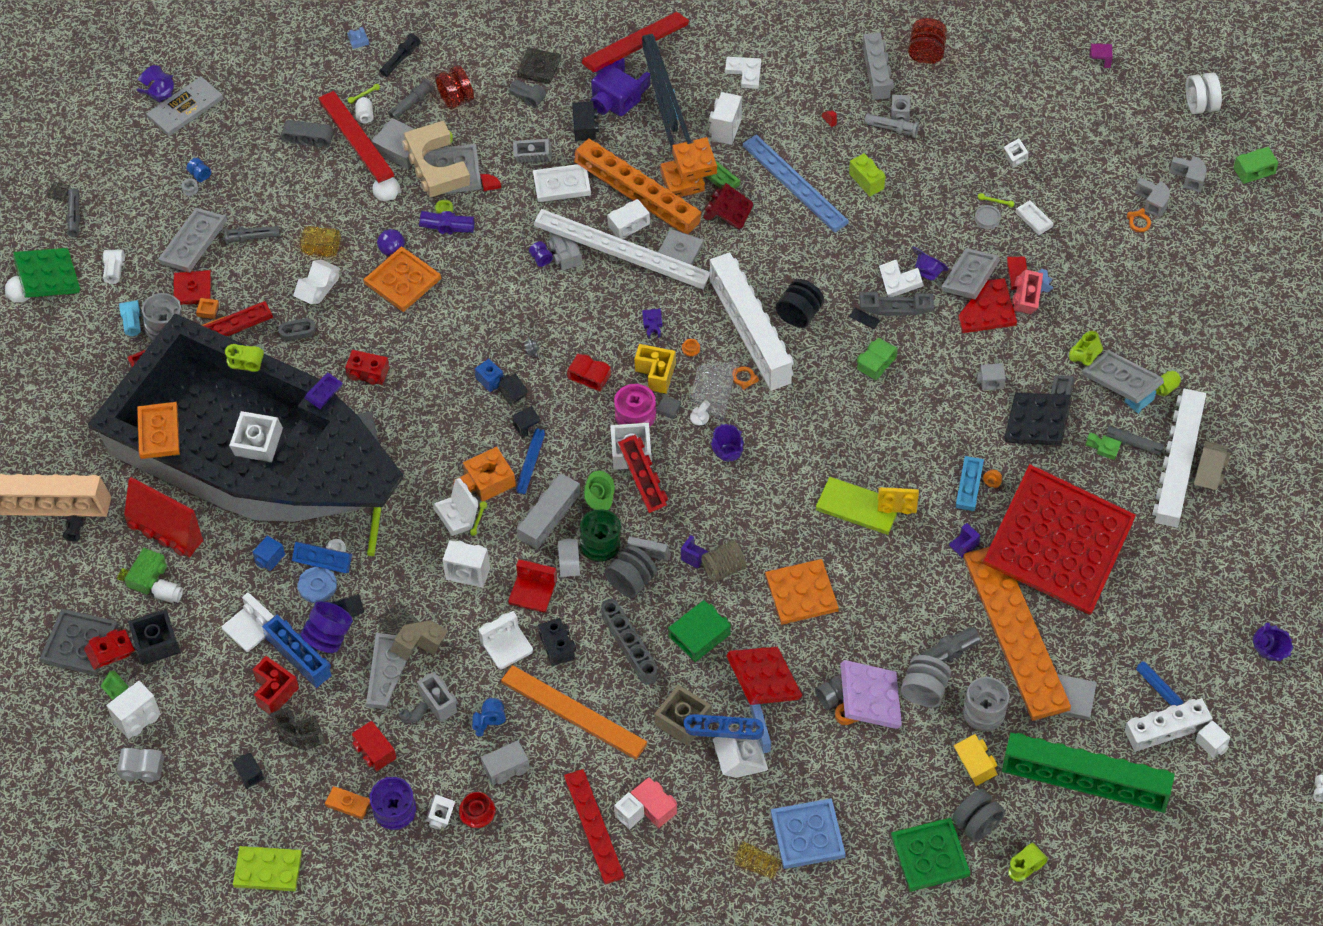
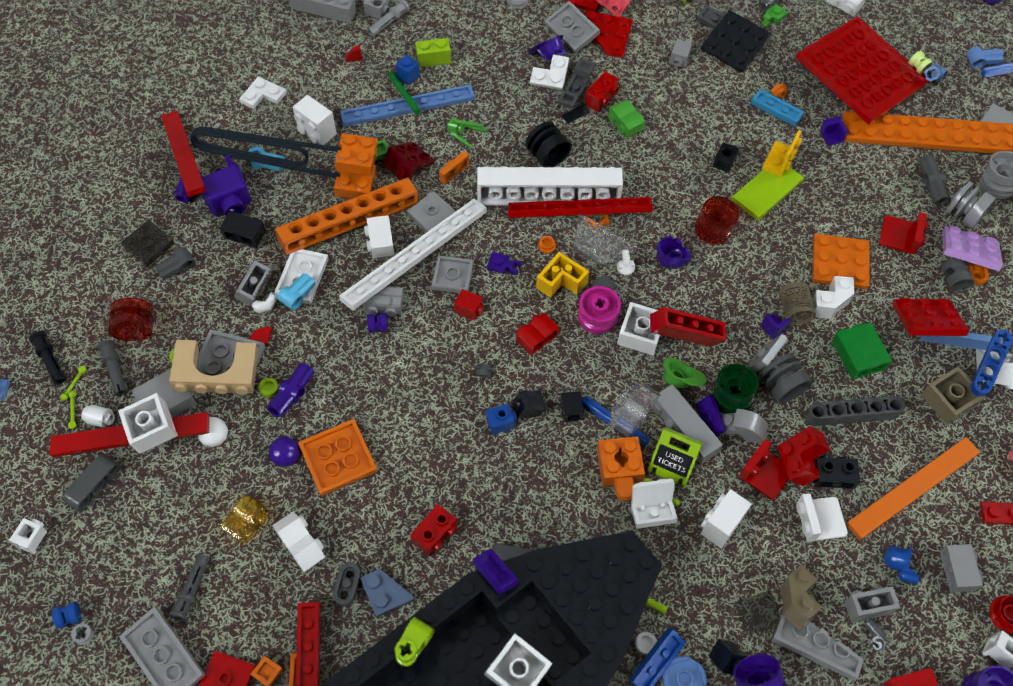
camera: 70 degrees left, 5 degrees up
(248, 117) = (22, 539): none -> white brick
(302, 354) = (384, 592): none -> sand blue wing
(362, 137) = (147, 423): none -> white brick
(401, 82) = (82, 369): none -> lime hinge
(504, 510) = (672, 460): none -> container
(519, 171) = (267, 305): none -> white arm
(533, 181) = (293, 295): none -> medium azure piece
(538, 461) = (634, 408): none -> clear brick
(556, 602) = (799, 455): none -> red brick
(565, 530) = (711, 415): none -> dark purple plate
(592, 311) = (469, 305): none -> red brick
(619, 289) = (452, 274): none -> light grey plate
(737, 244) = (454, 167): none -> orange plate
(744, 356) = (580, 207): none -> red tile
(753, 596) = (839, 295): none -> white brick
(784, 466) = (716, 220): none -> clear red wheel
(785, 187) = (404, 93): none -> green bar
(789, 230) = (457, 126): none -> bright green plant
(832, 163) = (407, 70): none -> blue brick
(863, 634) = (903, 234): none -> red bracket
(875, 449) = (725, 157): none -> black brick
(898, 326) = (601, 91): none -> red brick
(1102, 590) = (920, 62): none -> yellowish green wheel
(1105, 613) = (935, 73): none -> medium blue piece
(1160, 655) = (980, 58): none -> medium blue piece

